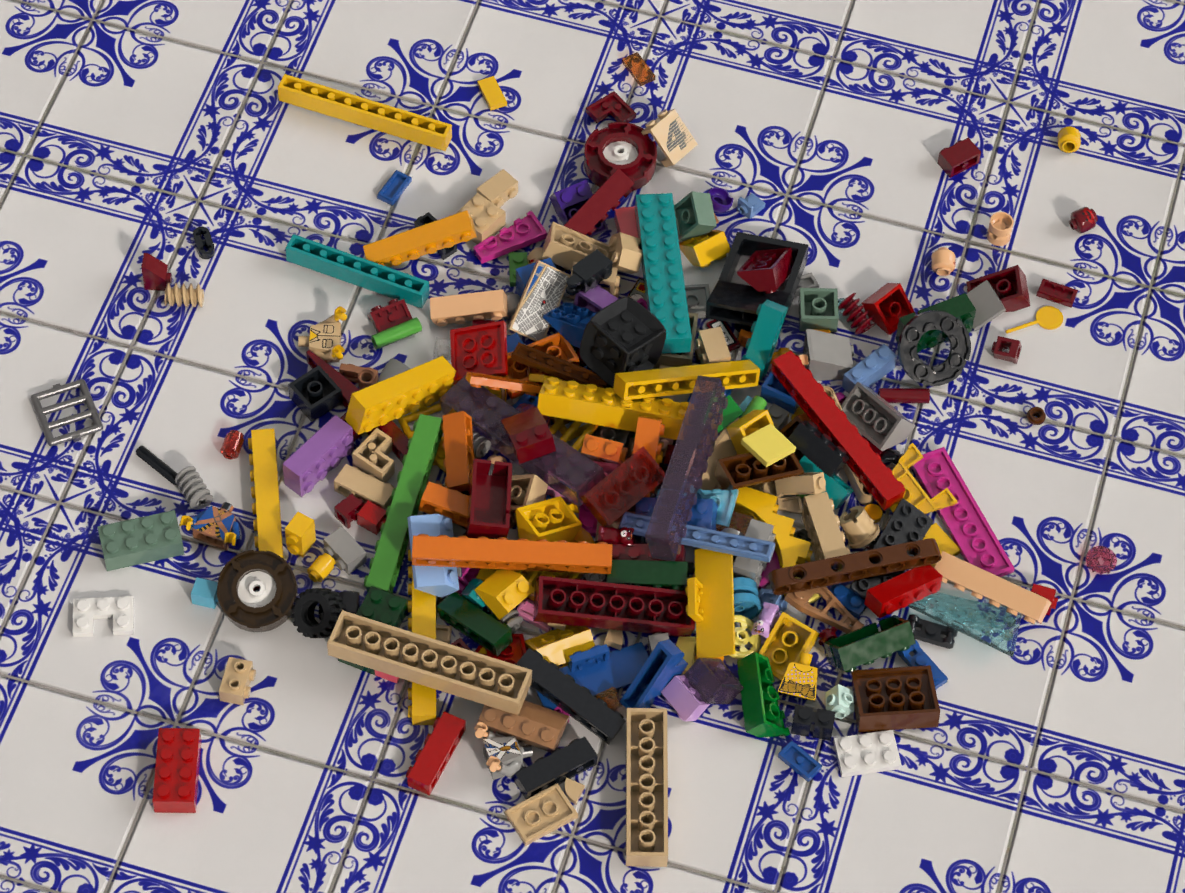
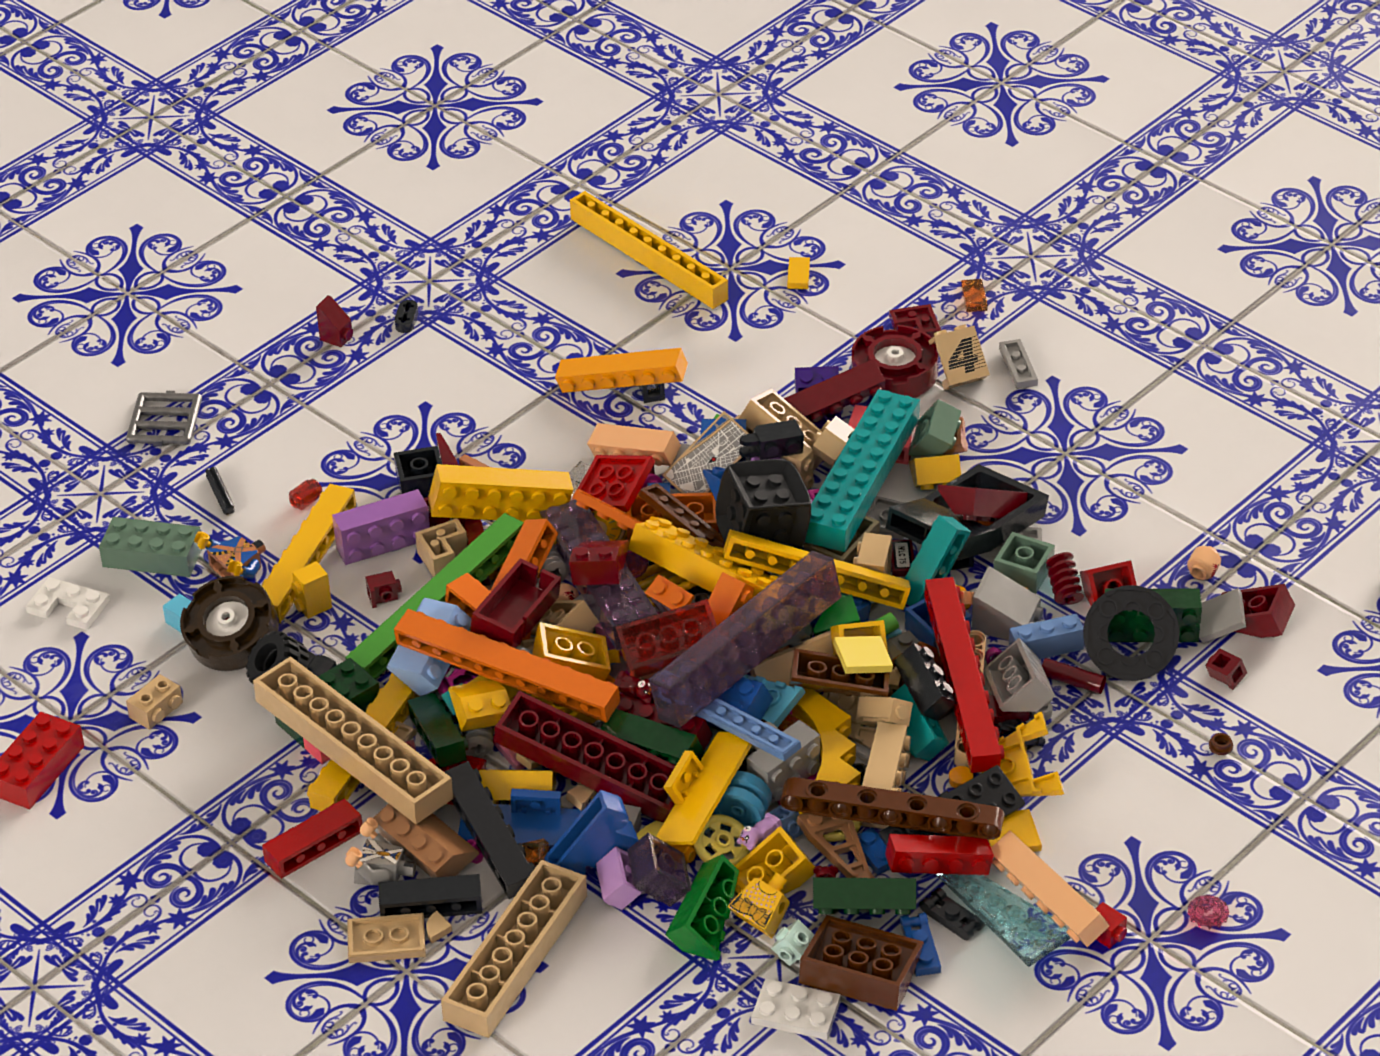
camera: 30 degrees right, 15 degrees down
(184, 295) = (351, 352): tan piece -> none
(193, 488) = (237, 516): light grey piece -> none
(321, 567) = (315, 630): yellow brick -> none
(326, 337) = (468, 432): tan torso -> none
(344, 550) = (350, 622): light grey brick -> none
(357, 271) = (541, 381): teal brick -> none
(367, 487) = (407, 568): tan brick -> none
(371, 517) = (397, 596): red brick -> none
(390, 315) = (549, 431): dark red bracket -> none
(394, 187) = (636, 325): blue tile -> none
(396, 333) = (546, 449): bright green piece -> none
(485, 216) = (706, 376): tan brick -> none
(499, 188) = (742, 356): tan brick -> none
(519, 235) = (710, 405): dark pink wing -> none
(709, 124) = (1018, 364): none -> light grey plate
(720, 199) = (980, 432): dark purple hair -> none
(750, 205) = (1014, 450): medium blue bracket -> none
(799, 761) = (710, 987): blue plate -> none
(805, 716) = (759, 954): black piece -> none
(858, 527) = (928, 776): tan piece -> none
(959, 157) = (1288, 472): dark red brick -> none
(965, 519) = (1066, 817): dark pink plate -> none
(1000, 228) = (1292, 550): light nougat wheel -> none
(1047, 318) = (1297, 656): yellow piece -> none
(1057, 293) = (1324, 633): dark red plate -> none

